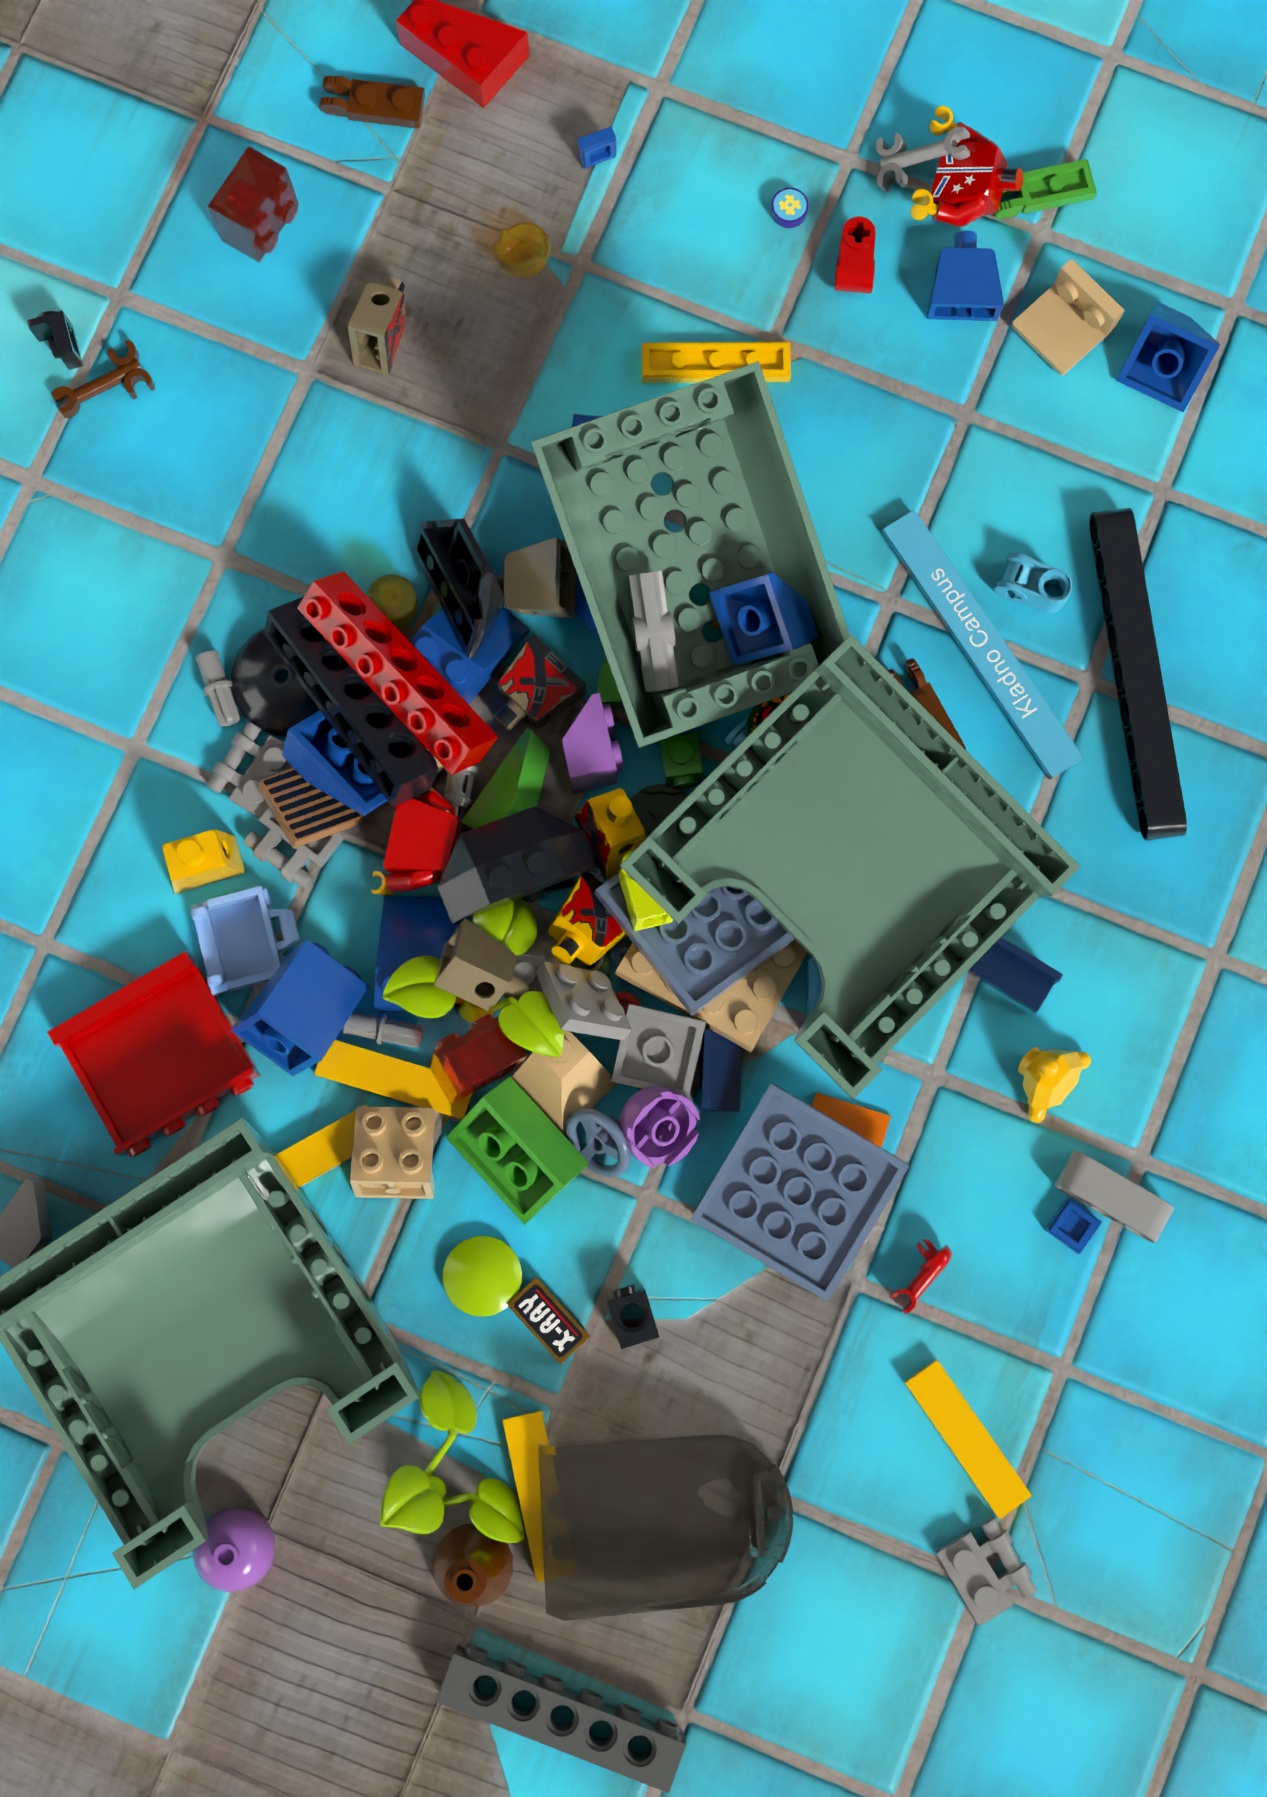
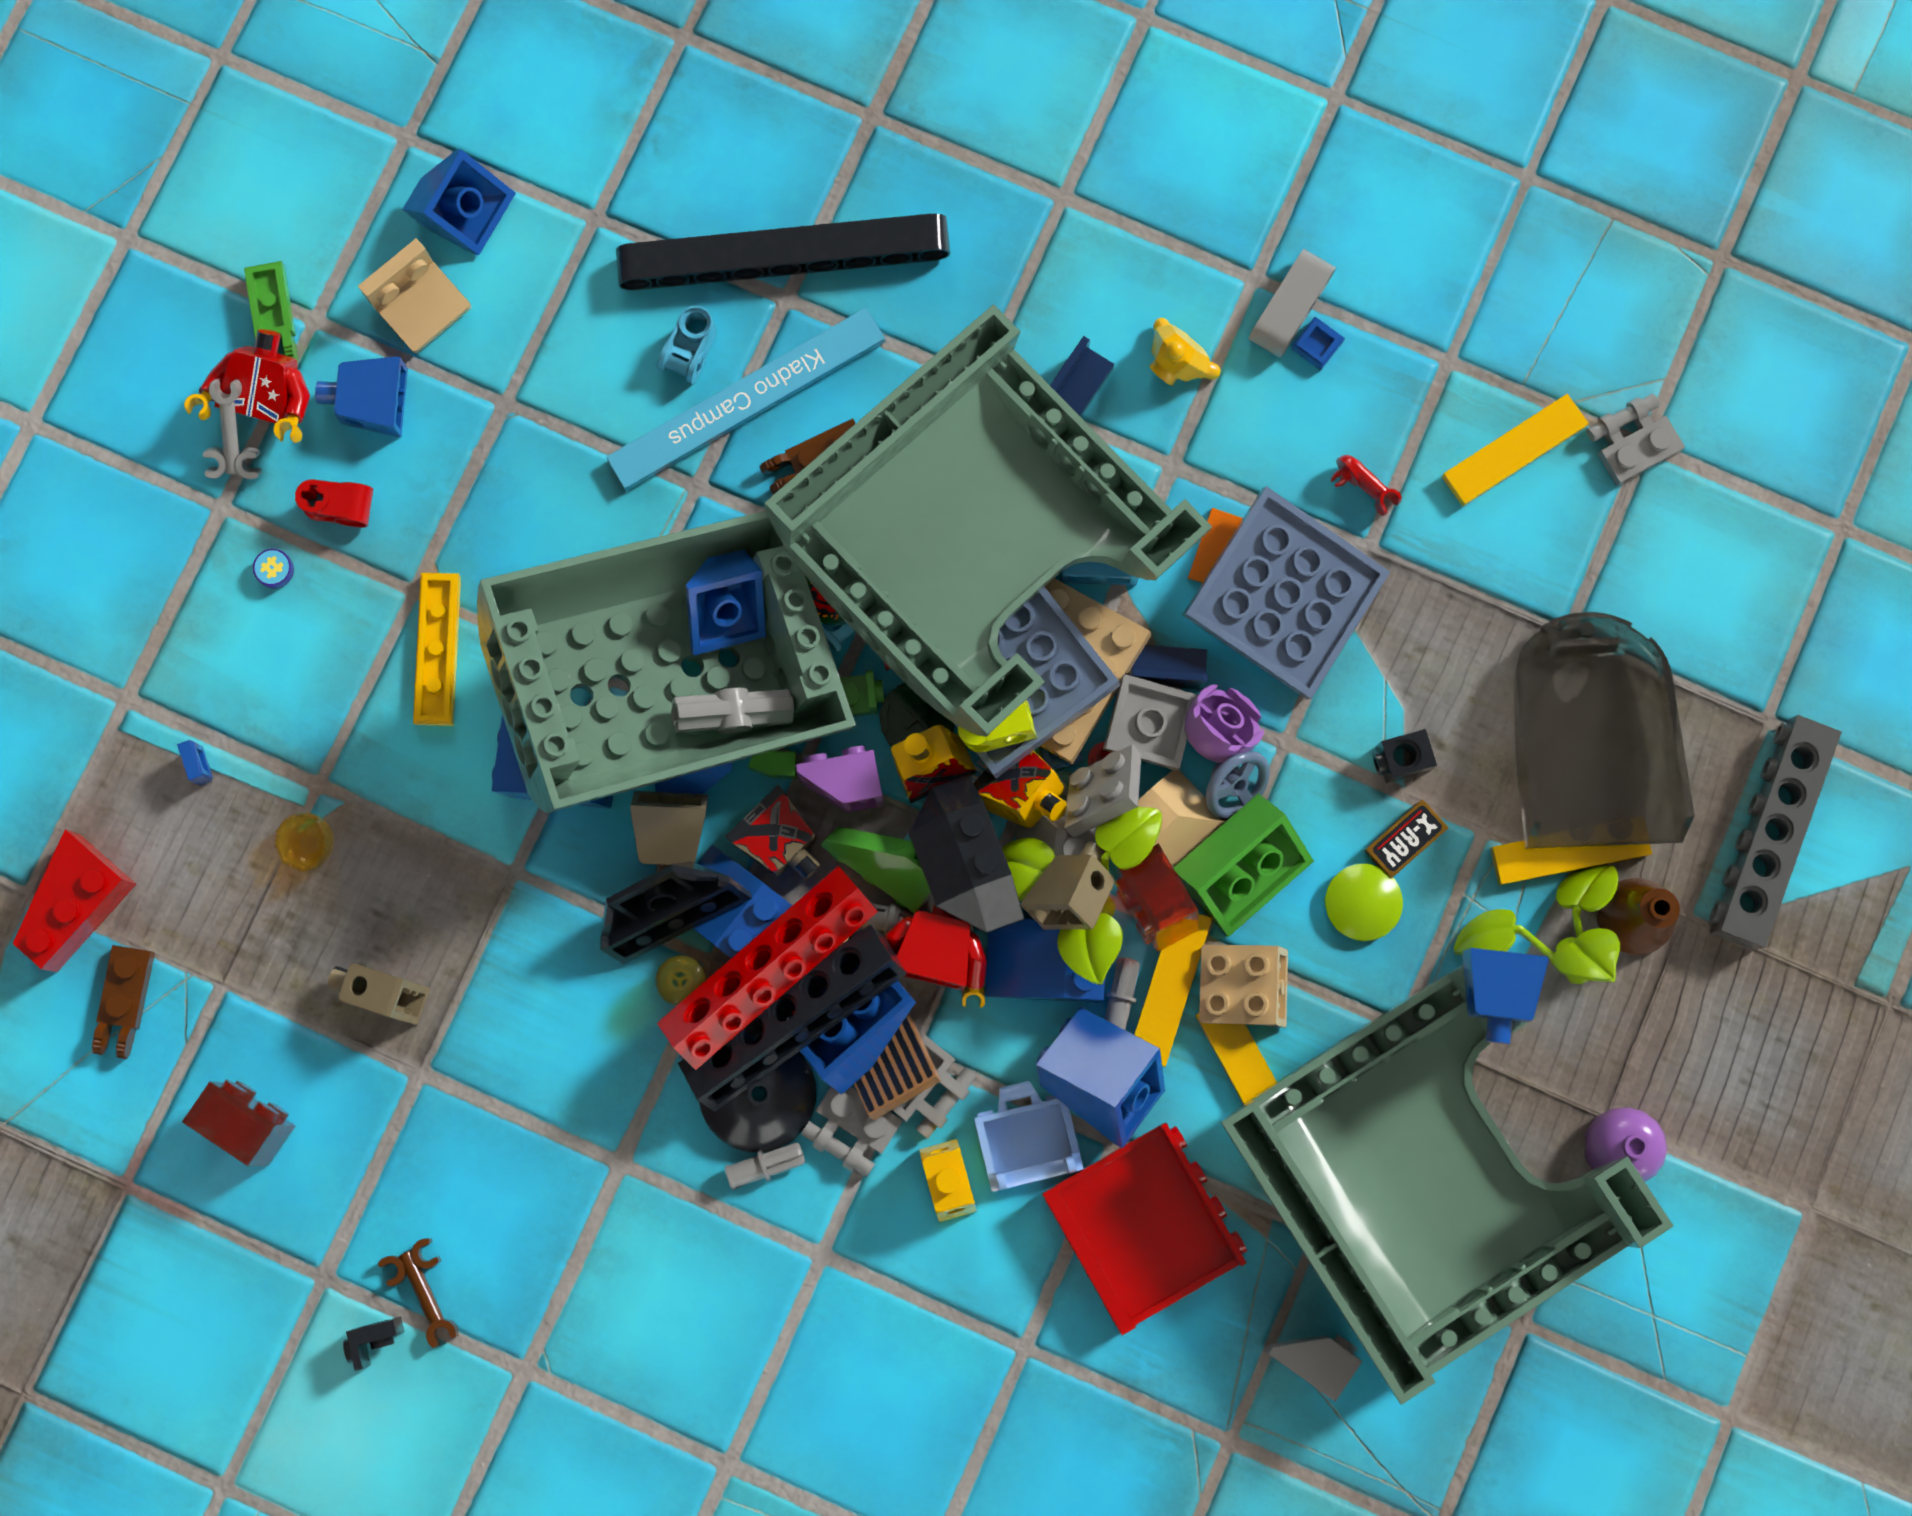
camera: 90 degrees left, 0 degrees up
(373, 1407) = (1502, 988): none -> blue torso

